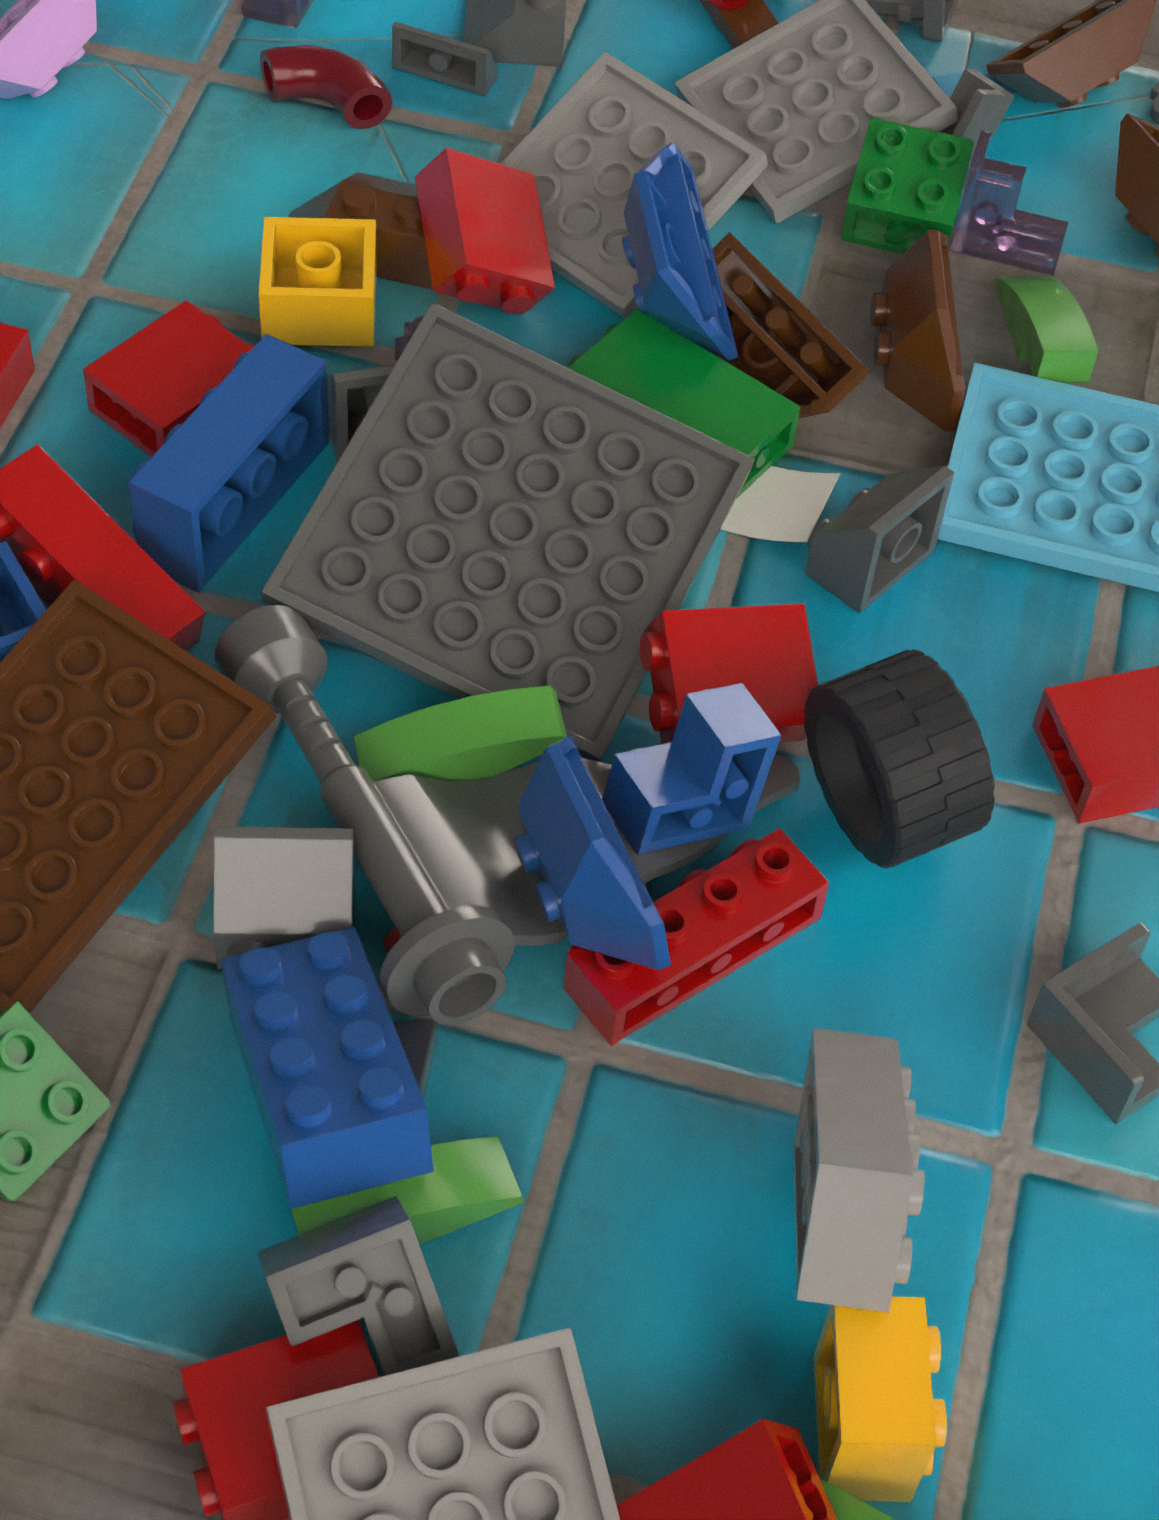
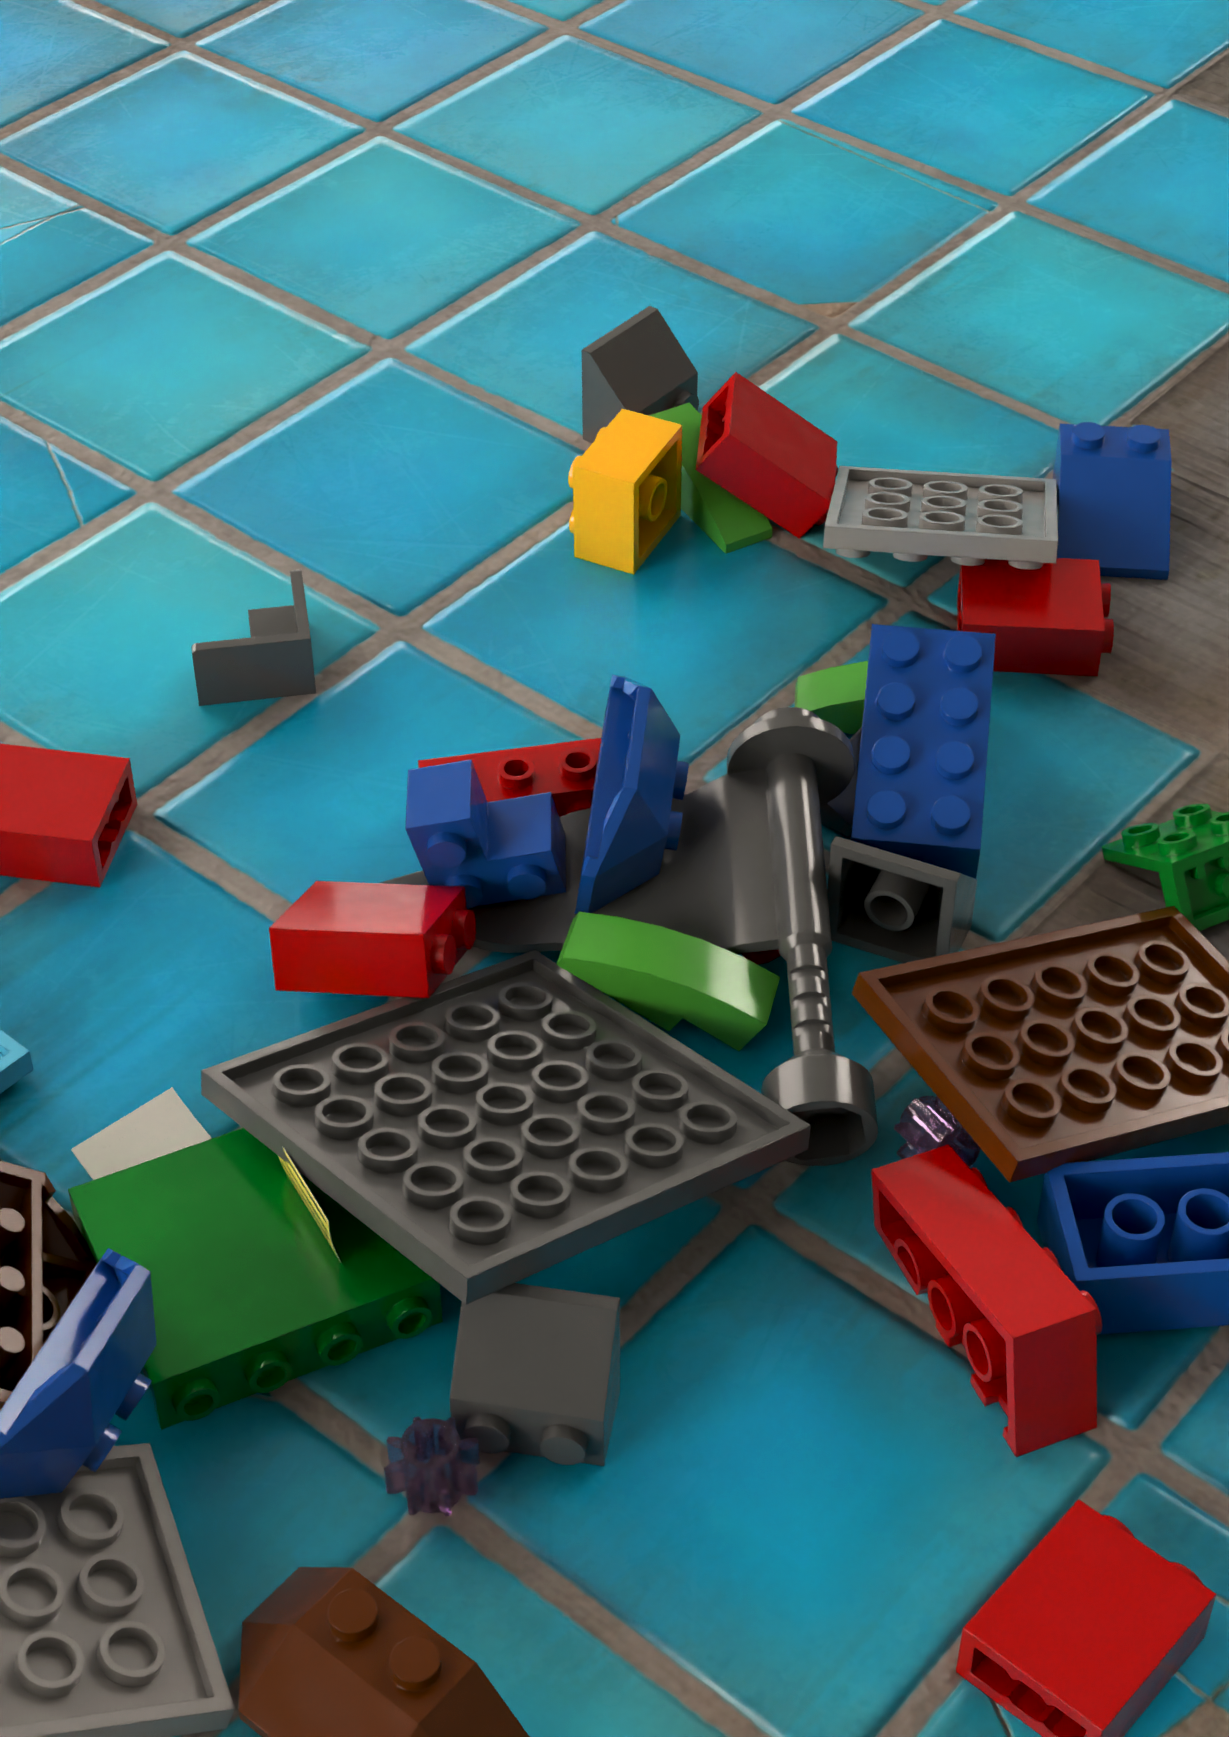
camera: 150 degrees left, 10 degrees down
(161, 374) = (779, 1529): red brick -> none
(230, 461) = (765, 1337): blue brick -> none
(318, 281) = (532, 1592): yellow brick -> none
(364, 1270) = (970, 612): dark grey panel -> none
(484, 232) = (273, 1552): red brick -> none
(854, 1172) = (566, 538): light grey brick -> none
(879, 535) = (101, 1033): dark grey slope -> none
(899, 758) = (291, 791): black tyre -> none

